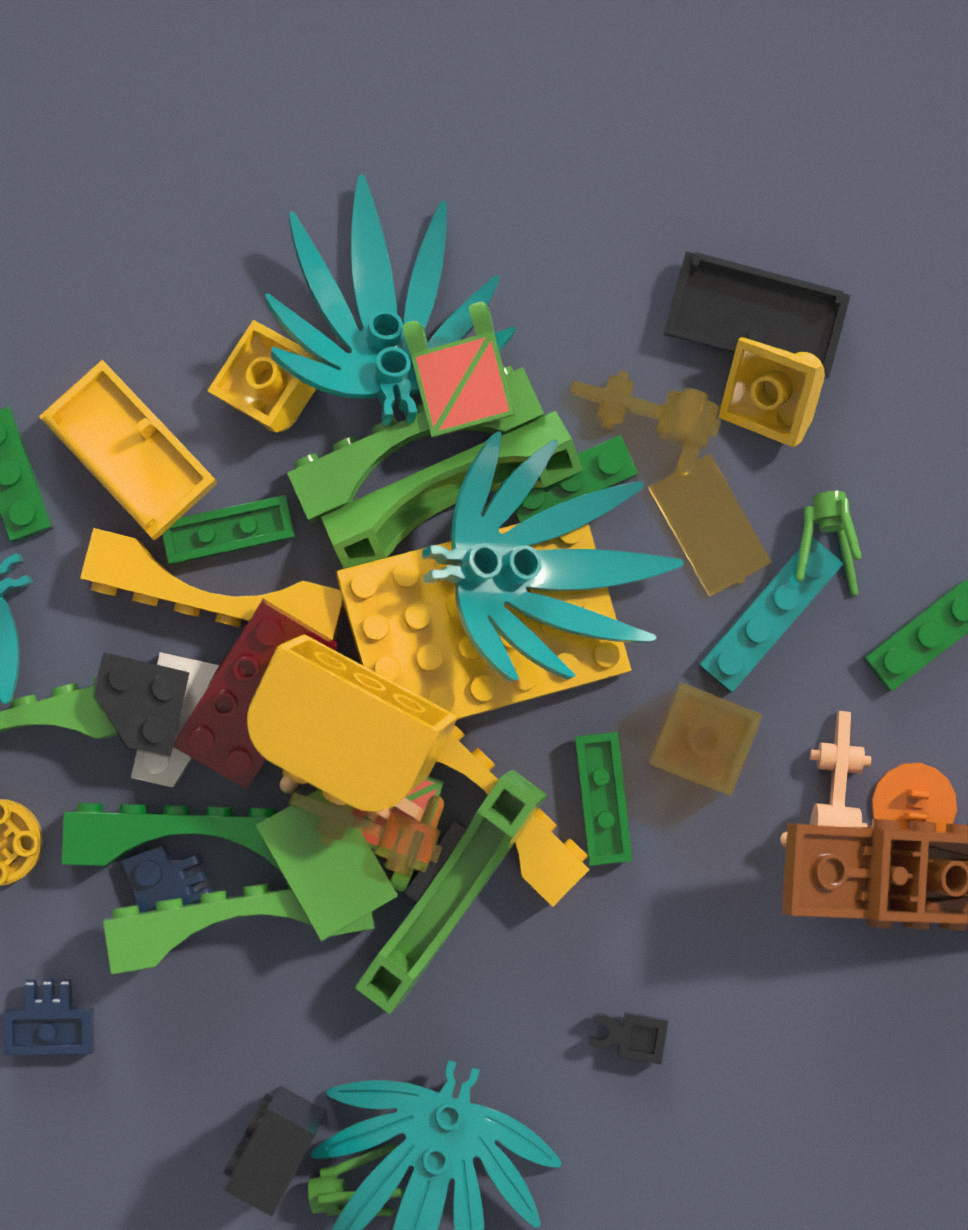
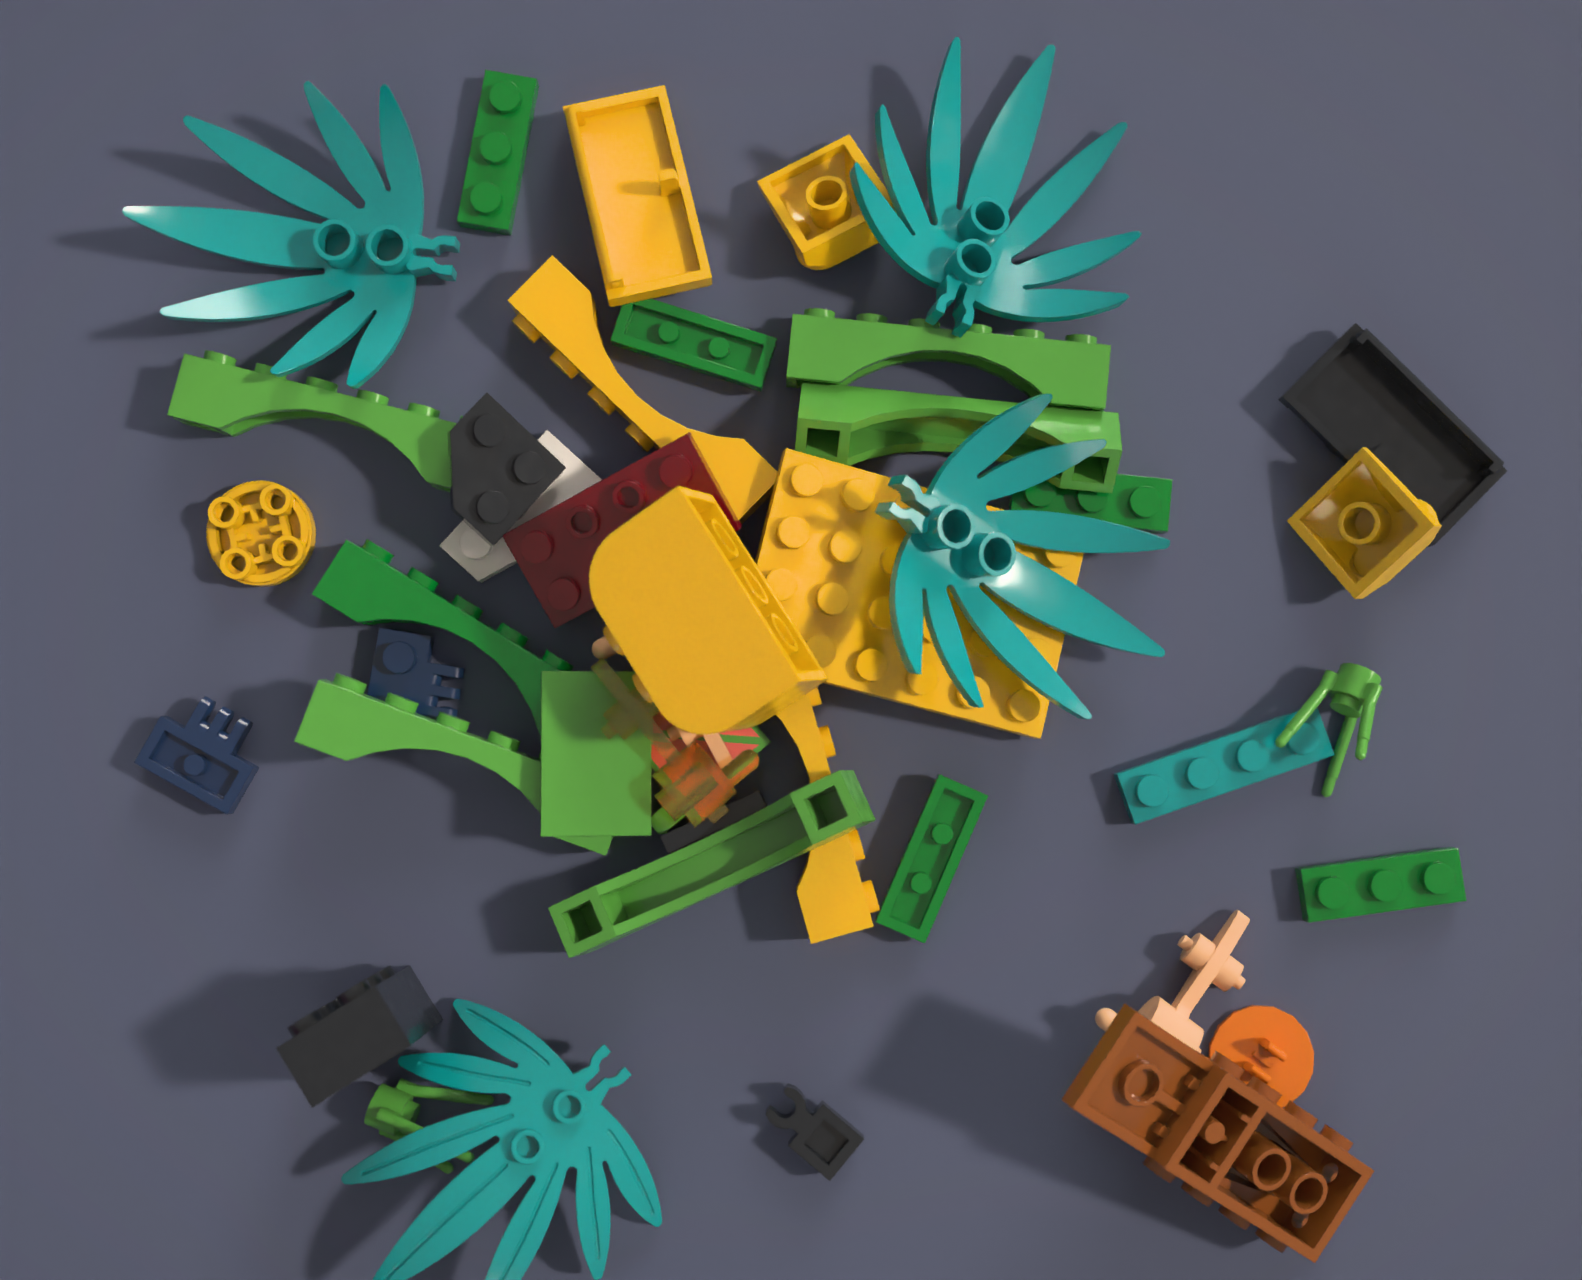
camera: 25 degrees right, 0 degrees up
(461, 380) = (1037, 320): coral flag -> none
(683, 419) = (1249, 503): clear yellow piece -> none
(704, 739) = (1078, 857): clear yellow brick -> none
(710, 525) = (1212, 631): clear yellow piece -> none

